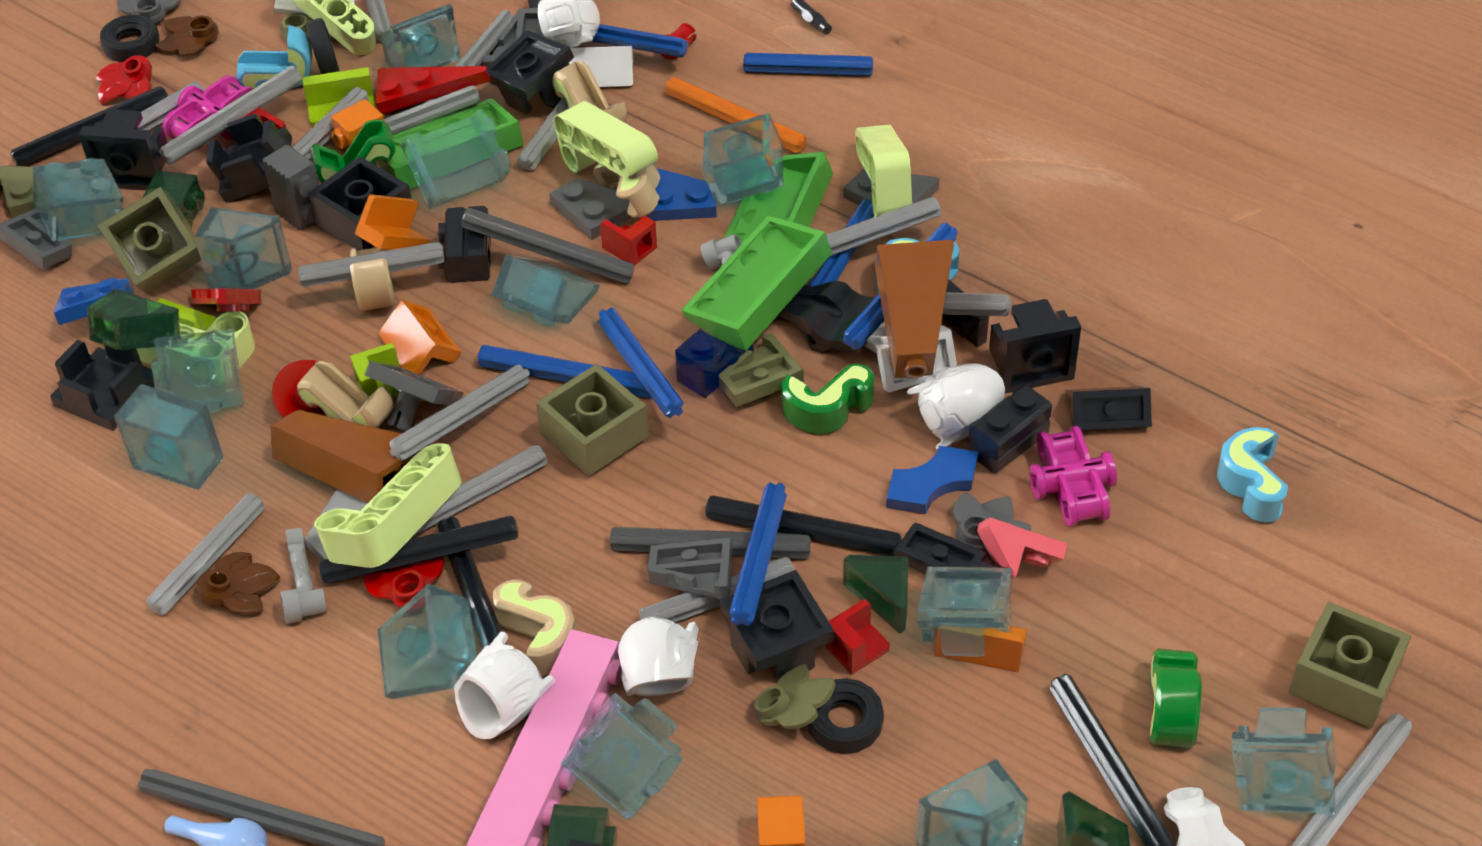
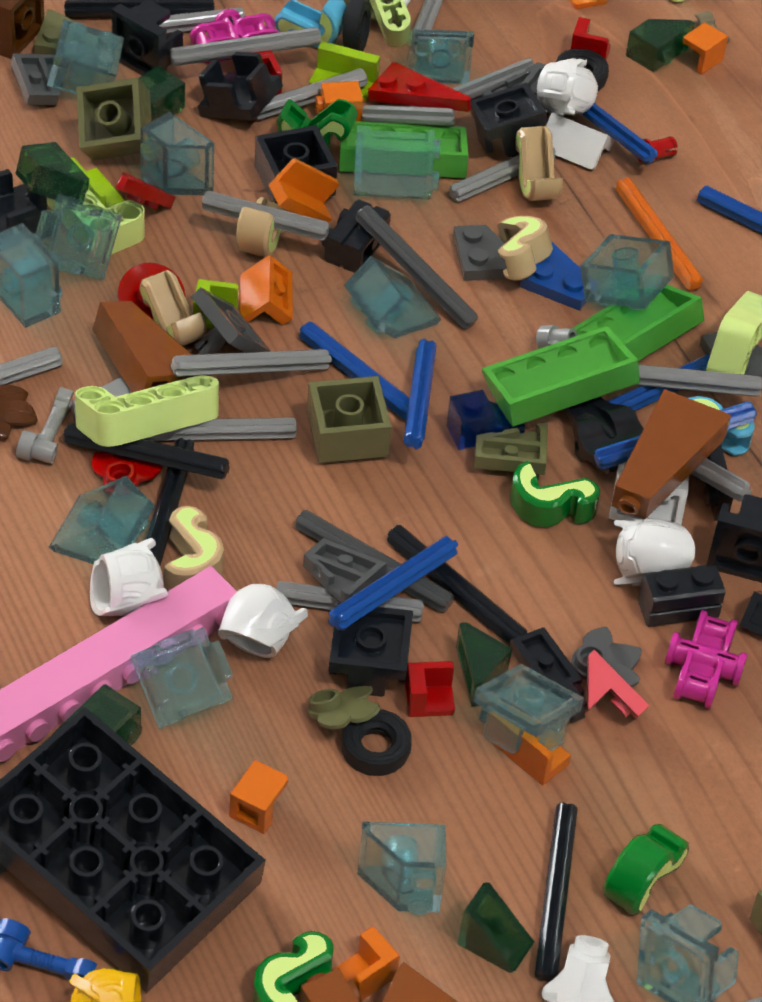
camera: 25 degrees right, 0 degrees up
(75, 300) = (37, 136): blue wing -> none
(290, 181) = (250, 119): dark grey brick -> none
(594, 136) = (516, 201): yellowish green beam -> none
(628, 242) = (492, 297): red panel -> none
(919, 486) = (604, 604): blue tile -> none

